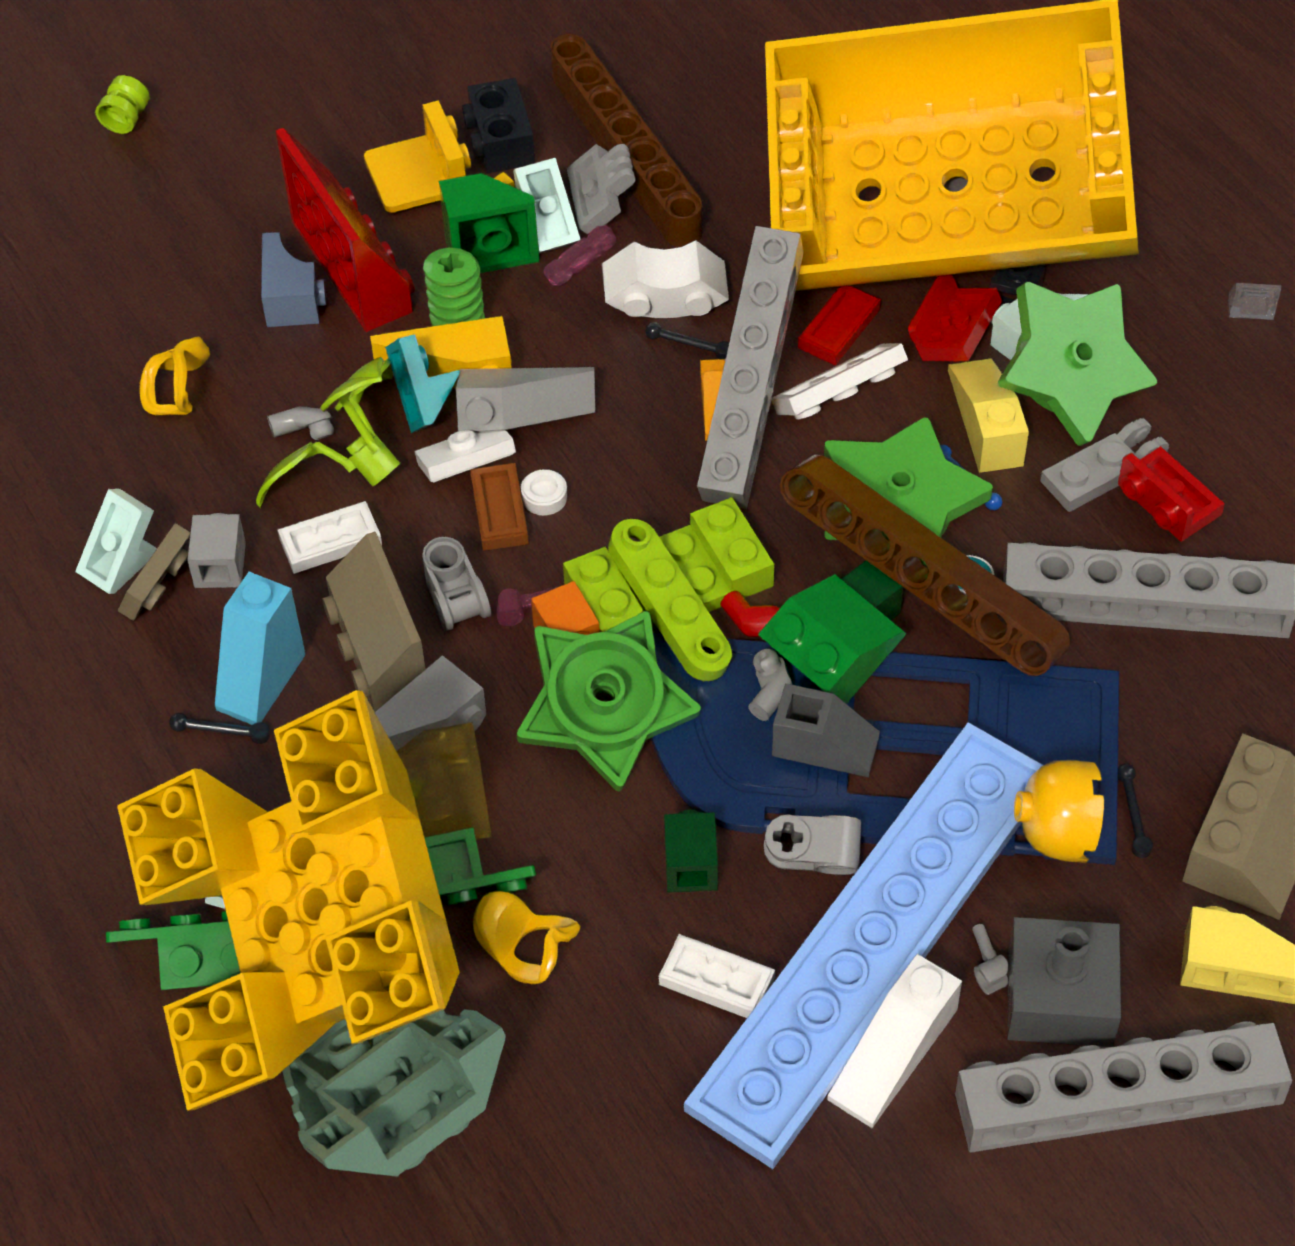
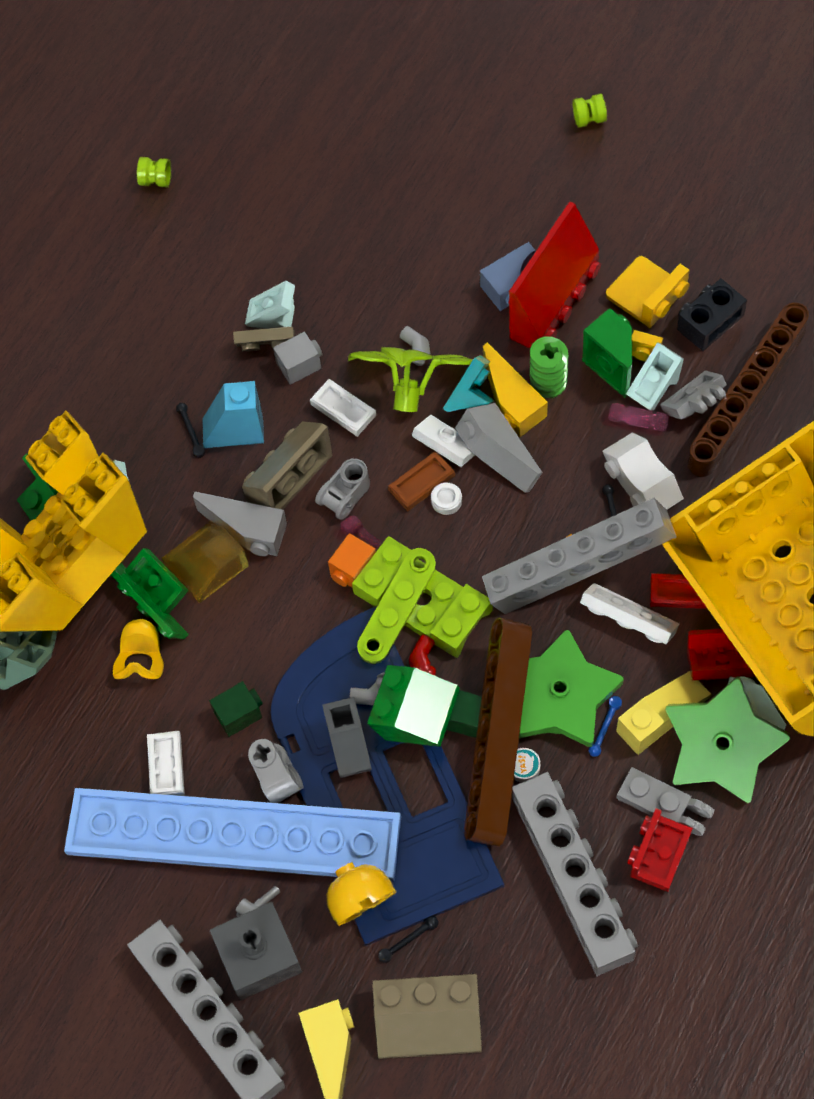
camera: 65 degrees right, 10 degrees up
(186, 356) = (423, 257): yellow piece -> none
(612, 663) = (288, 600): bright green plate -> none
(896, 1040) = (174, 879): white slope -> none

